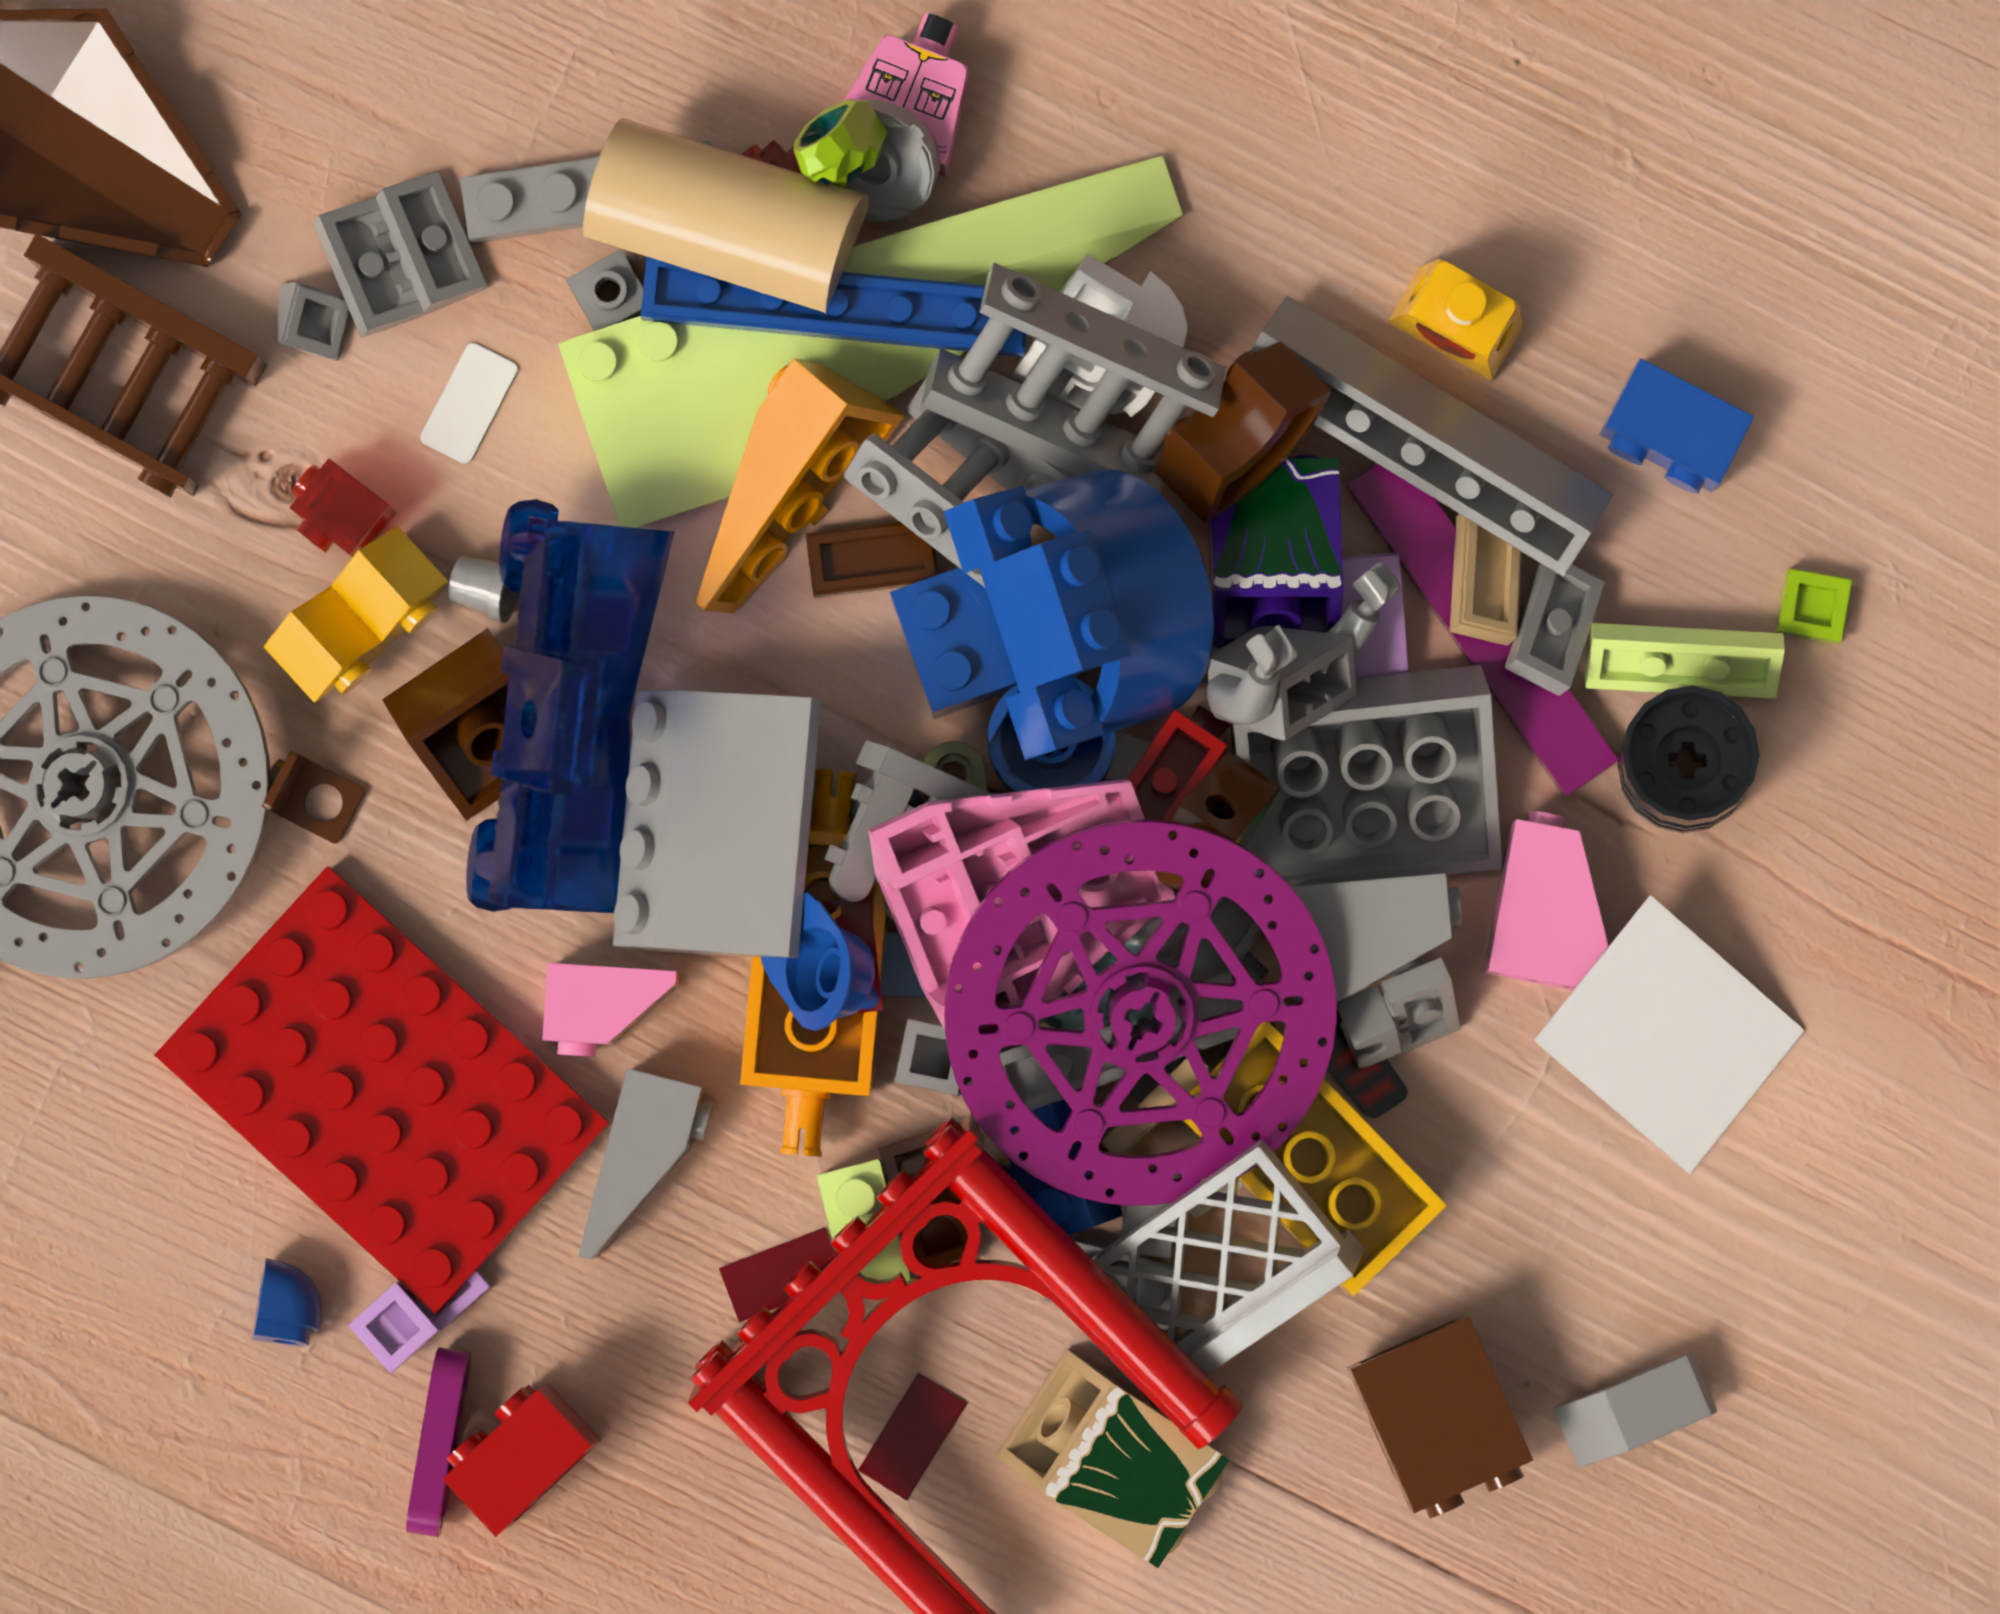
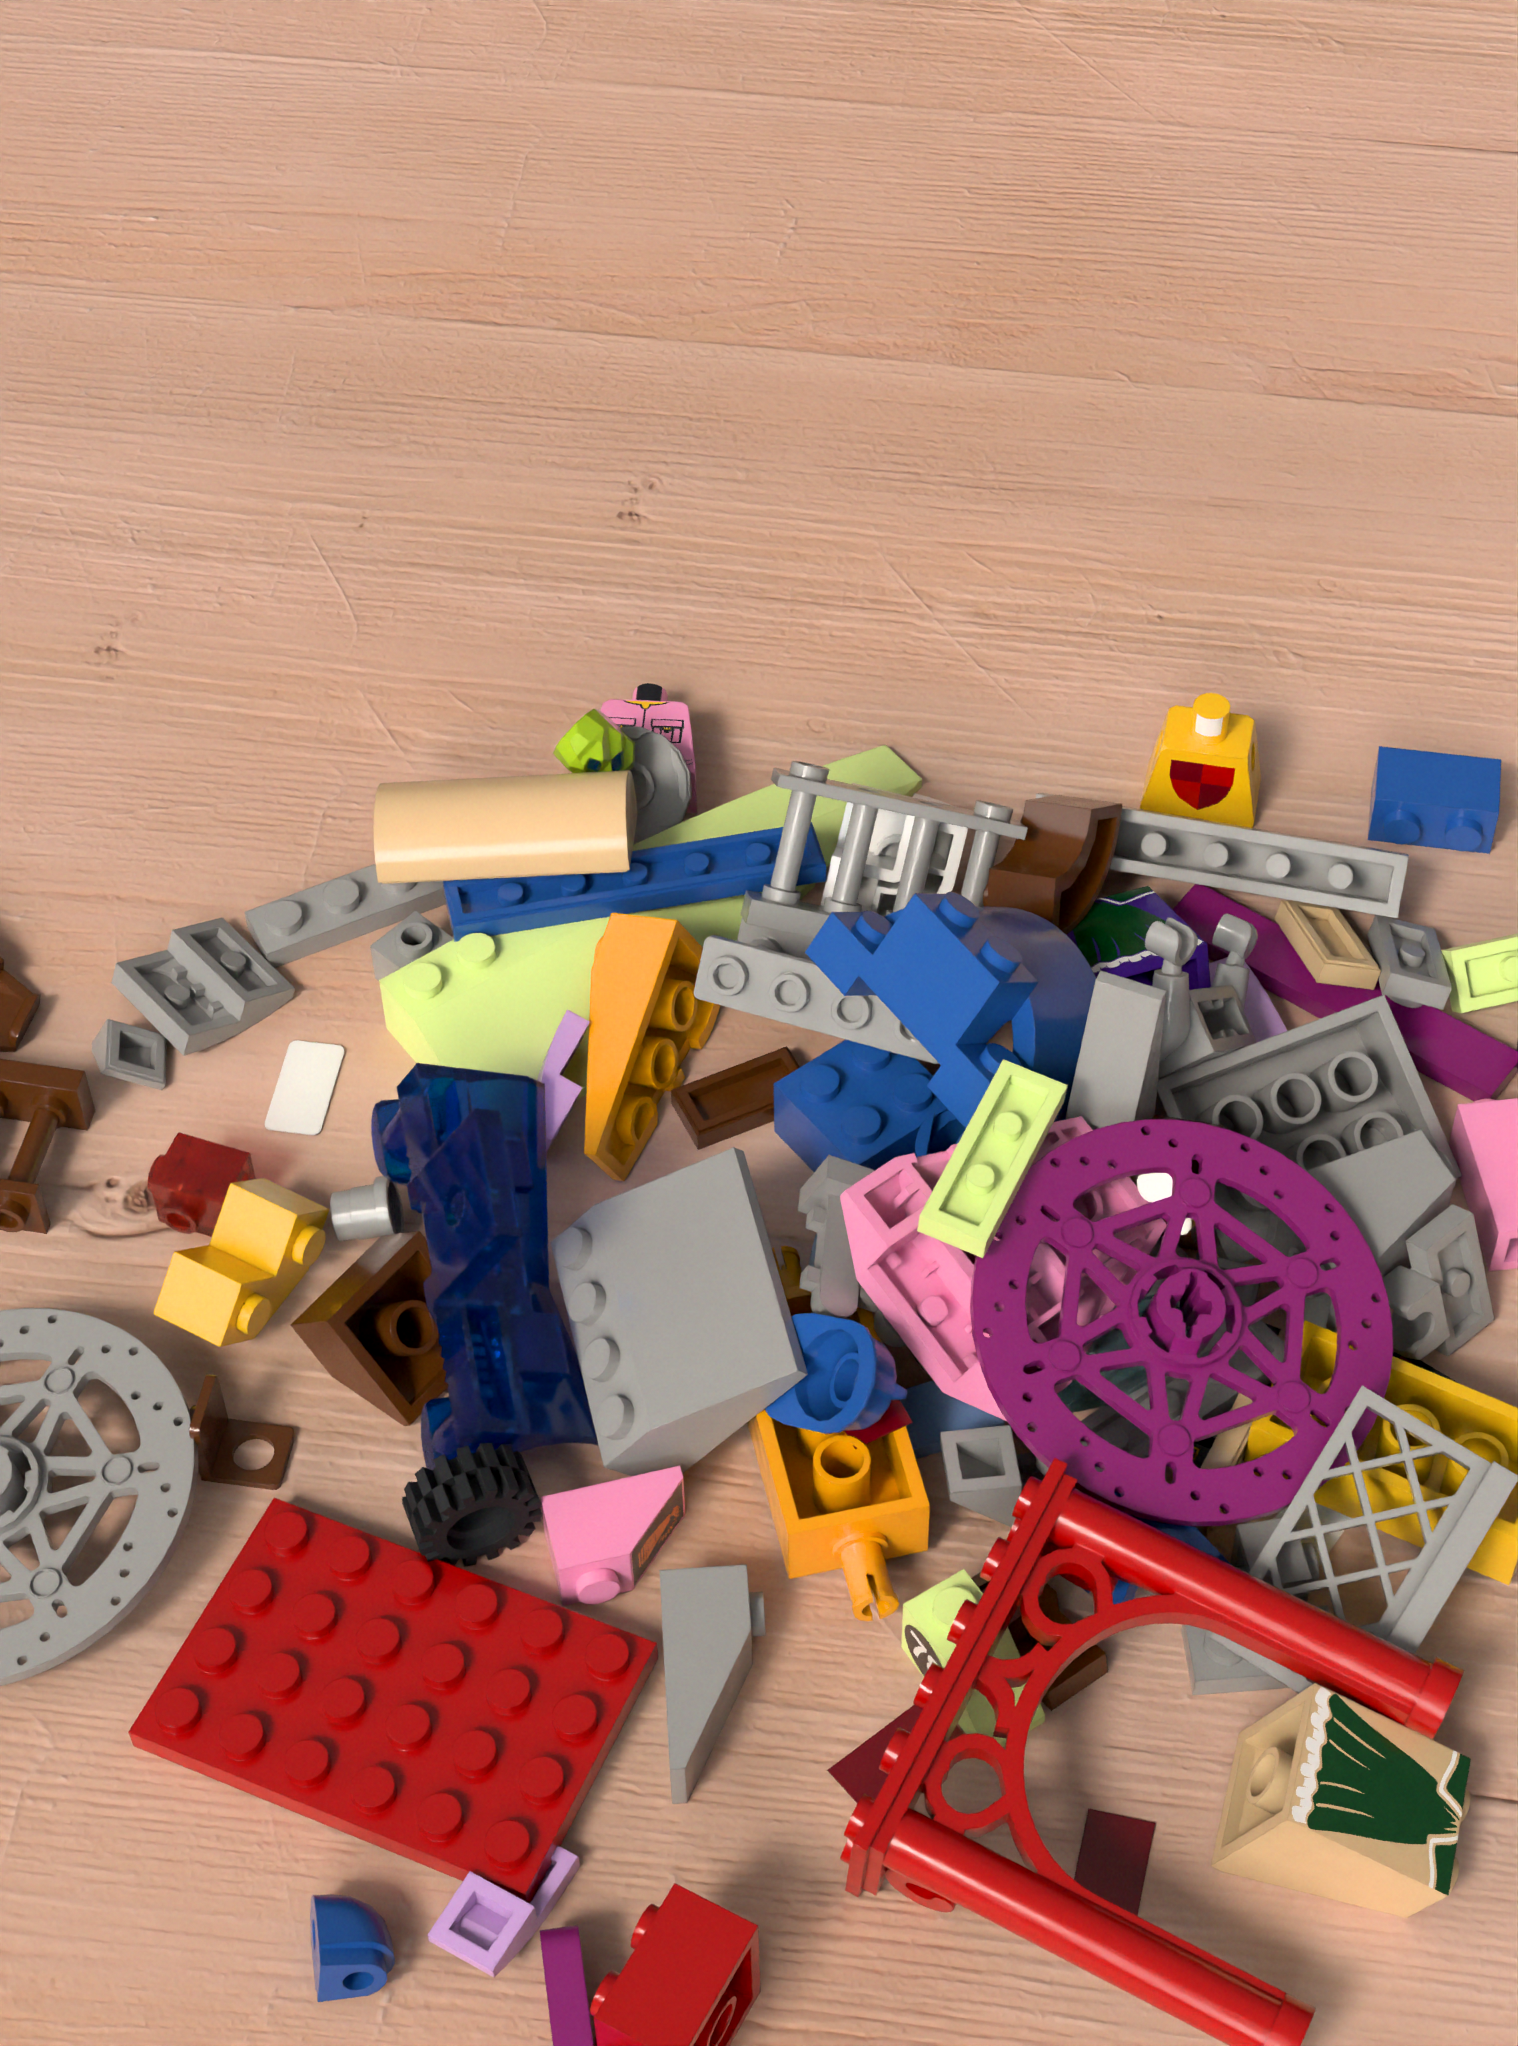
camera: 20 degrees left, 35 degrees down
(488, 947) = (472, 1504): none -> black tyre
(685, 515) = (560, 1091): none -> lavender slope
(1018, 833) = (992, 1158): none -> yellowish green plate
(1172, 758) = (1119, 1053): none -> light grey slope

